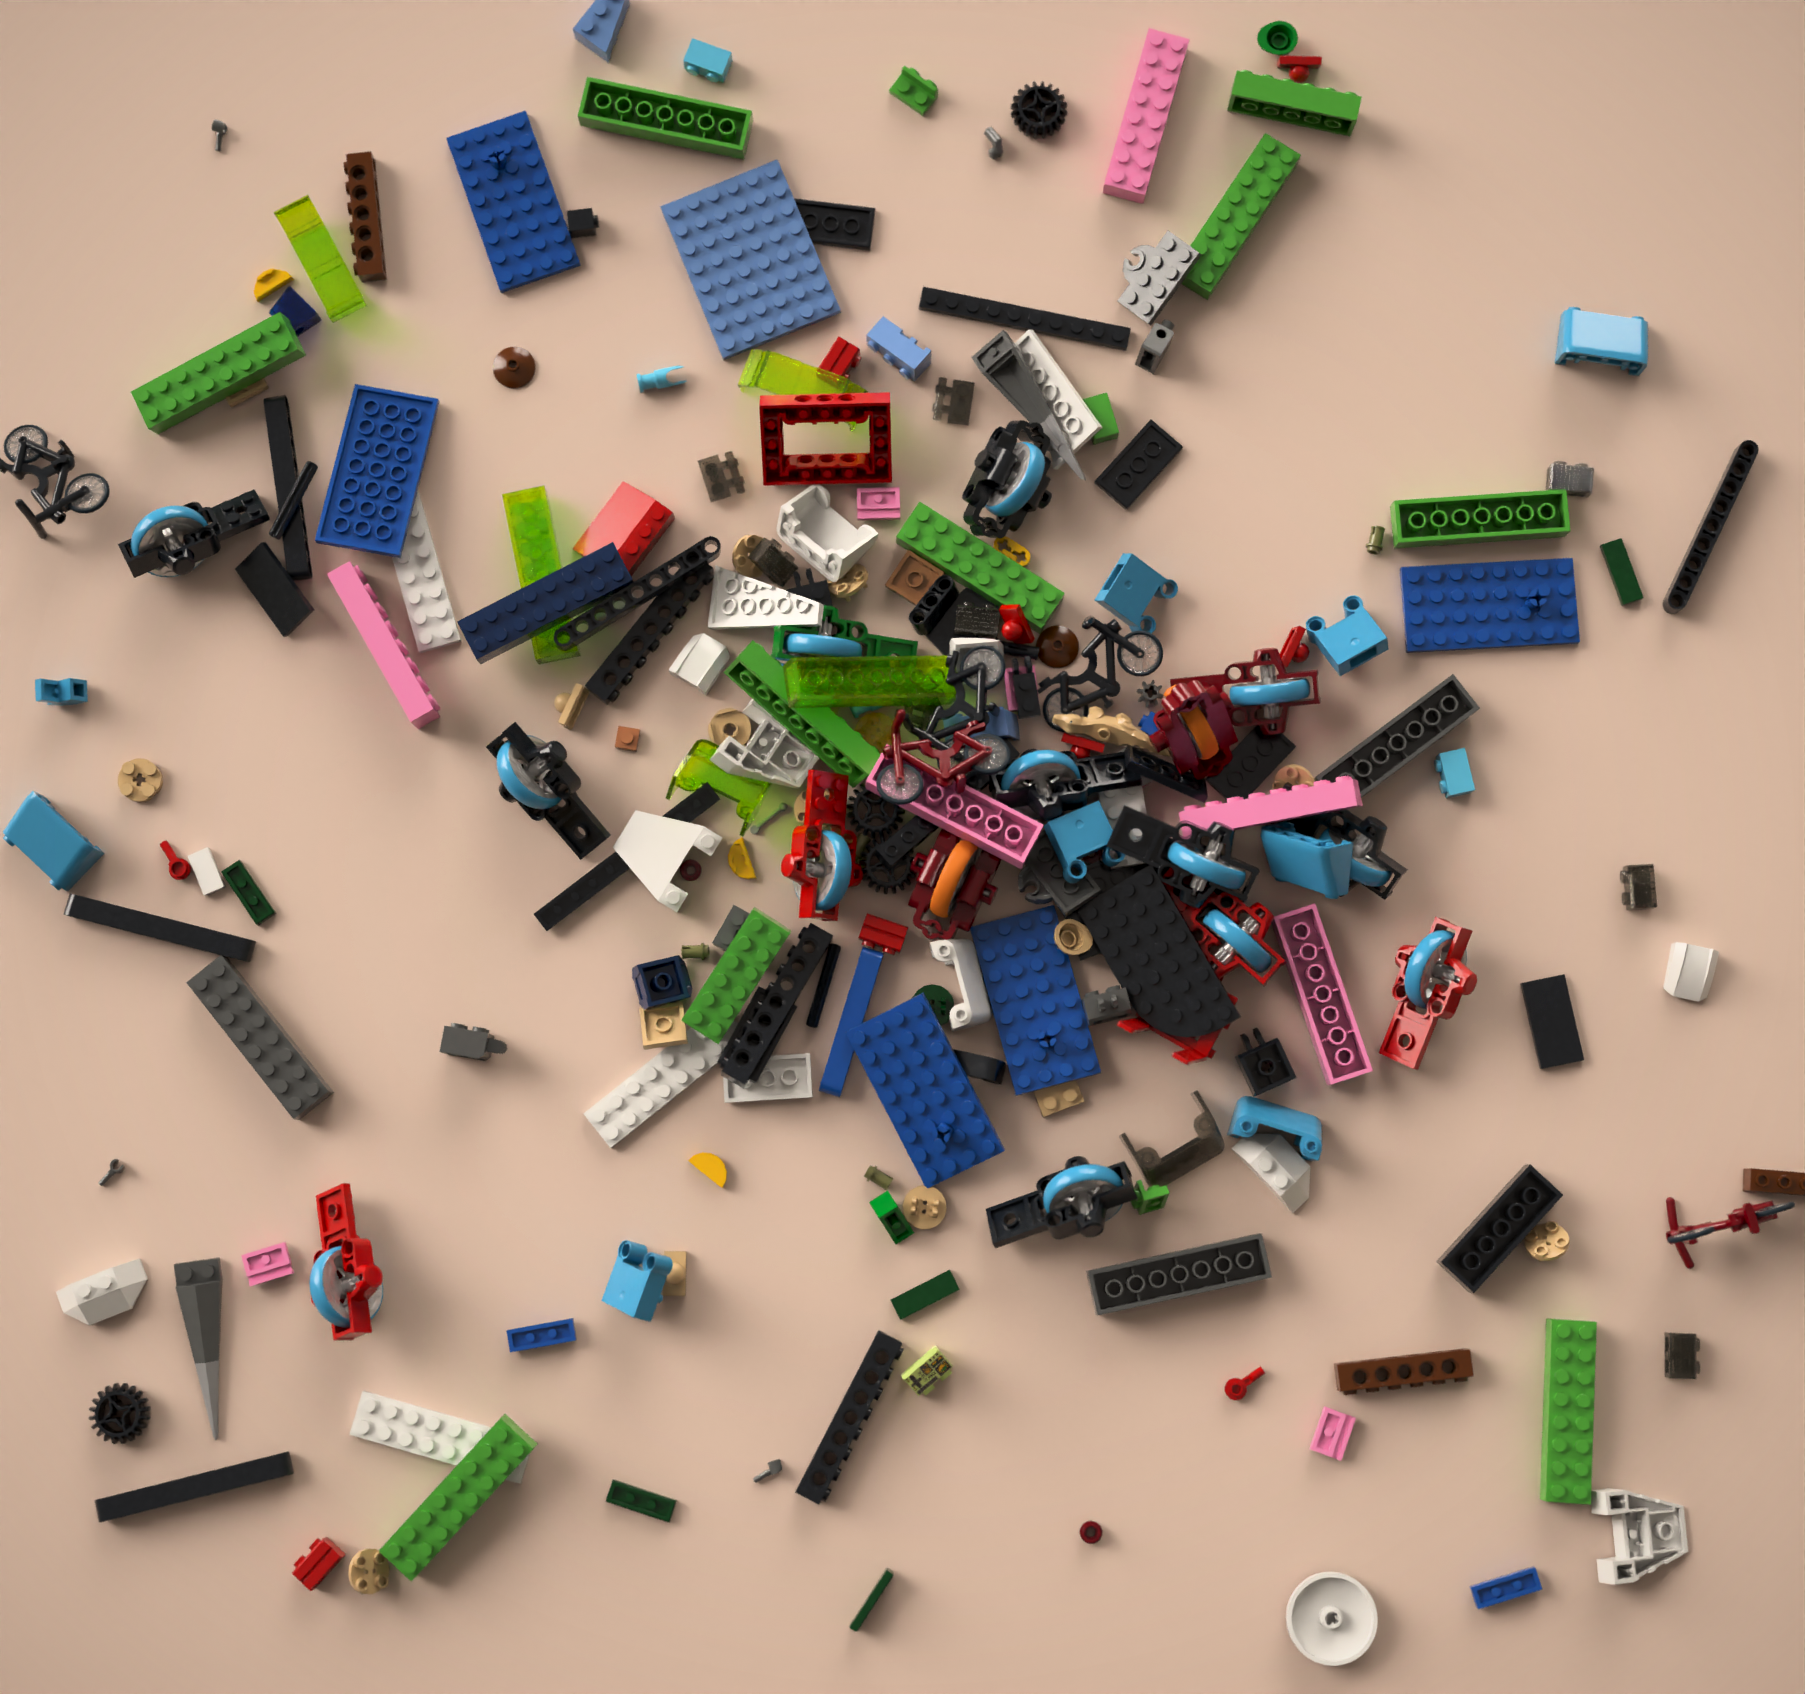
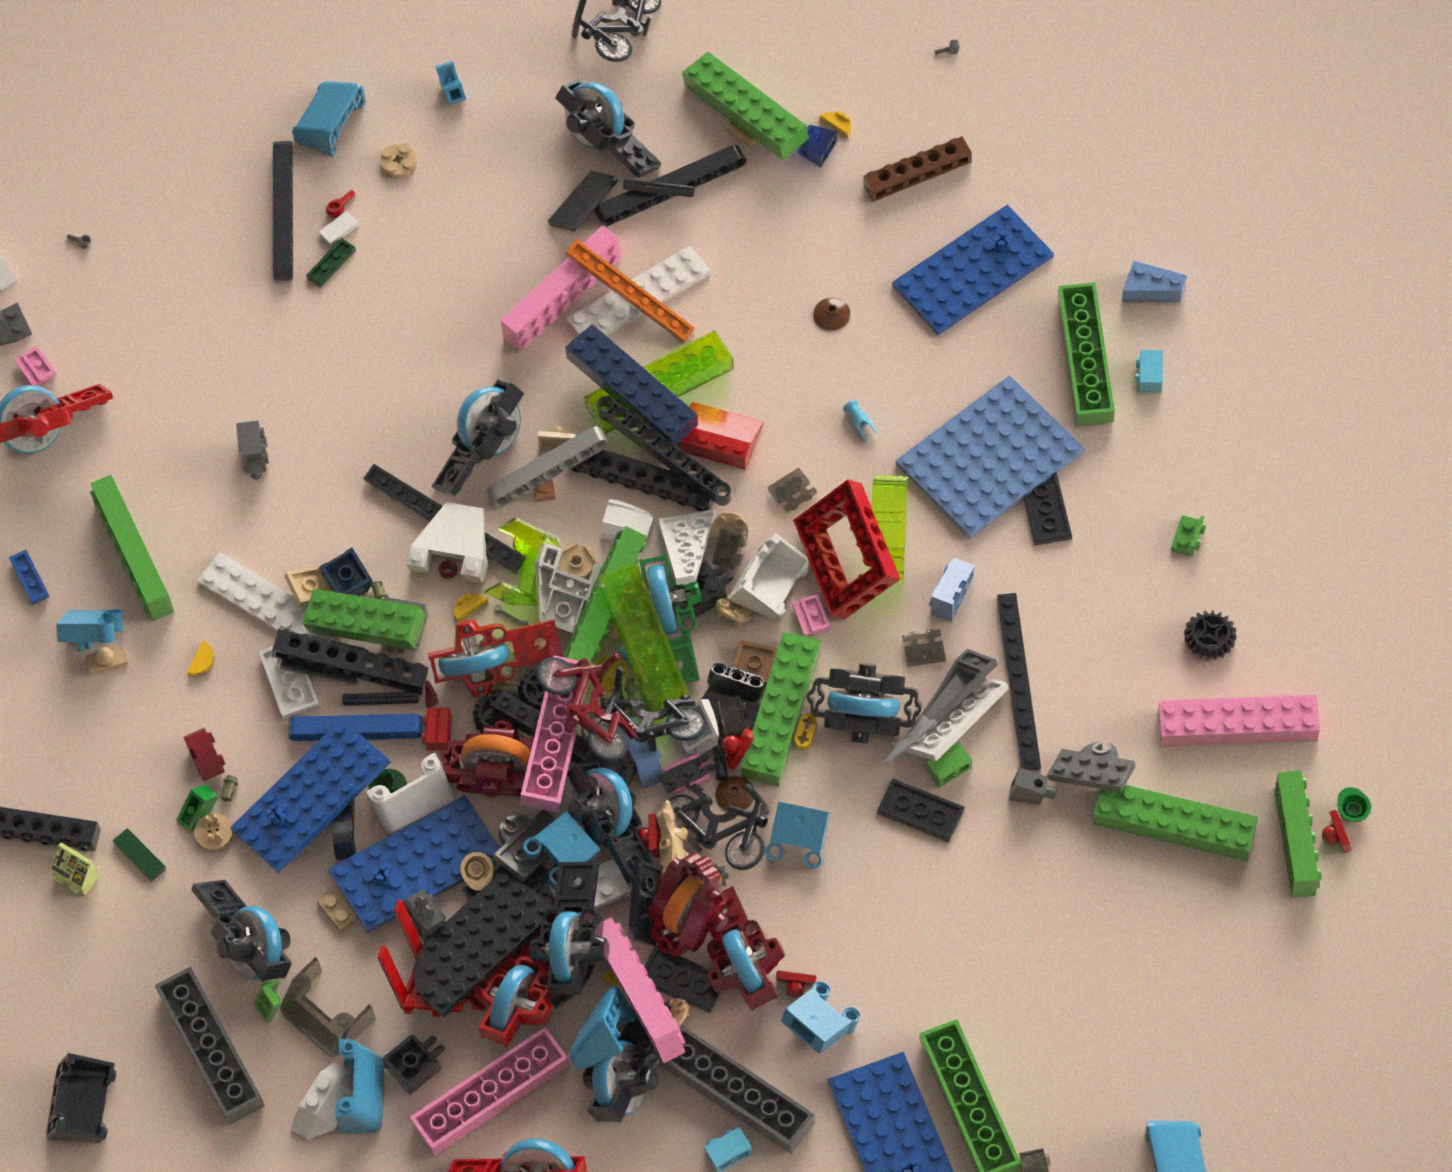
camera: 75 degrees right, 20 degrees down
(260, 1037) = (214, 304): dark grey brick -> none
(320, 258) = (871, 149): clear neon green windscreen -> none
(377, 471) = (705, 239): blue plate -> none
(417, 571) = (629, 291): none -> orange tile
(548, 1209) = (131, 548): none -> bright green brick
(582, 223) = (972, 322): black brick -> none
(608, 725) = (547, 466): none -> light grey beam
(832, 1193) = (204, 754): none -> dark red brick
(839, 930) = (431, 697): none -> dark red slope
(841, 358) = (923, 547): red brick -> none
(996, 141) = (1167, 611): dark grey arm -> none
(1198, 1430) = (79, 1099): none -> black windscreen
(1237, 1388) = (123, 1126): red plate -> none
(1375, 541) = (917, 1023): olive pin -> none

